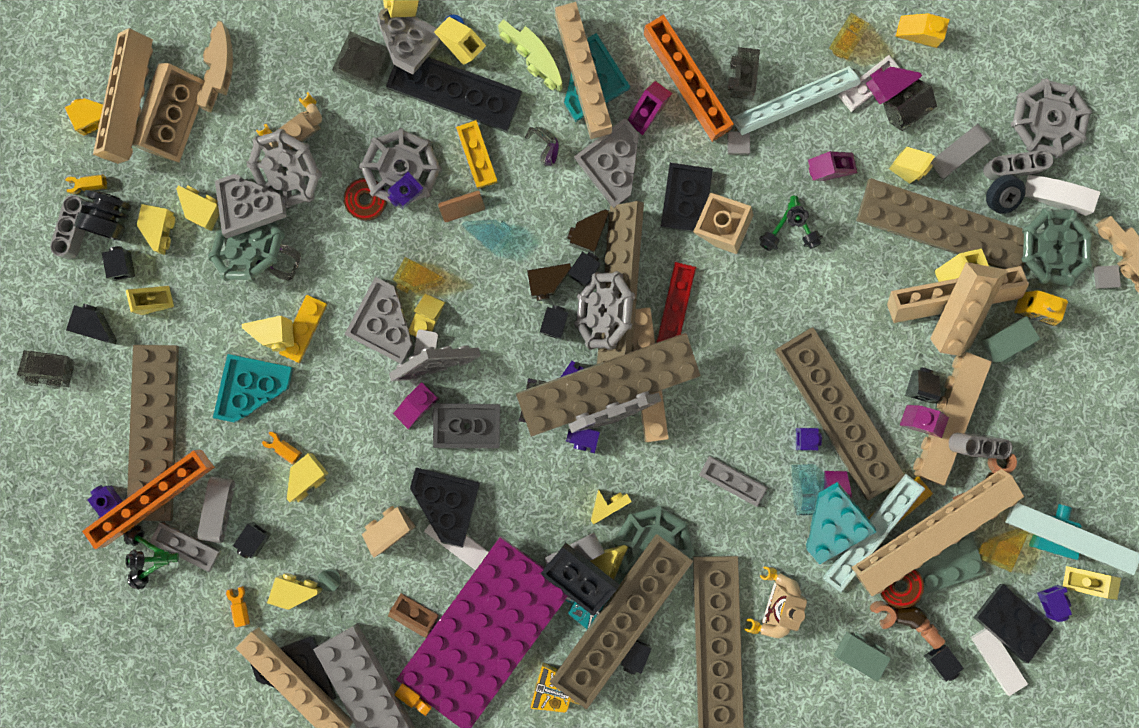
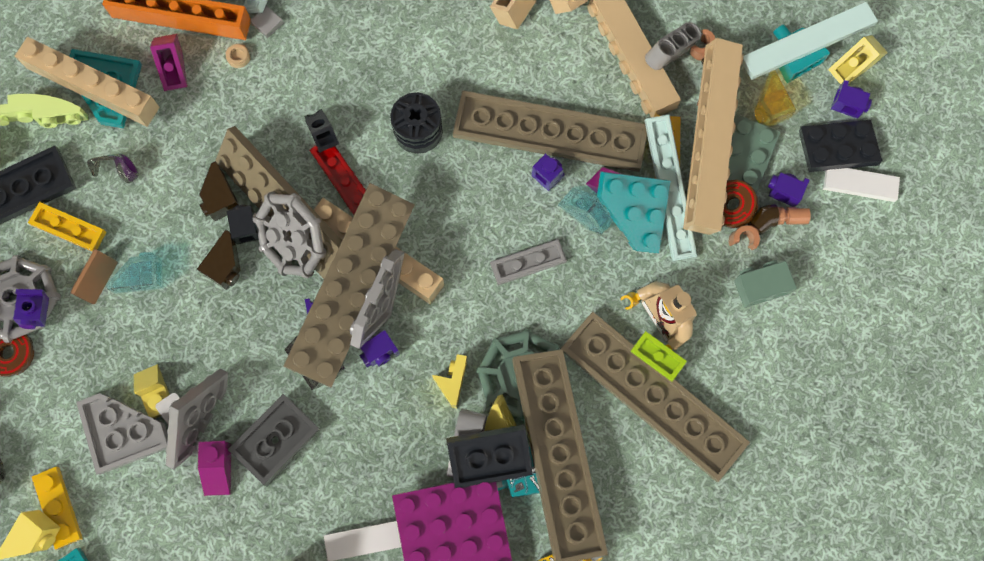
camera: 50 degrees left, 10 degrees down
(416, 277) = (112, 367): clear yellow slope -> none
(446, 503) = (321, 519): black plate -> none
(554, 322) = (261, 287): black brick -> none
(611, 162) = (182, 128): light grey plate -> none
(636, 658) = (602, 473): black brick -> none
(685, 196) = (268, 96): black plate -> none
(695, 258) = (321, 130): none -> black leg
(696, 147) = (237, 55): none -> tan tile
(724, 222) = (315, 83): tan slope -> none
(746, 628) = (658, 356): none -> lime plate
(751, 328) = (415, 134): none -> black wheel
(796, 217) = (361, 23): black plant -> none
(924, 385) = (588, 49): black slope -> none
(924, 420) = (614, 69): magenta slope -> none
(944, 663) = (826, 225): black brick -> none
(947, 613) = (787, 188): none -> dark purple brick

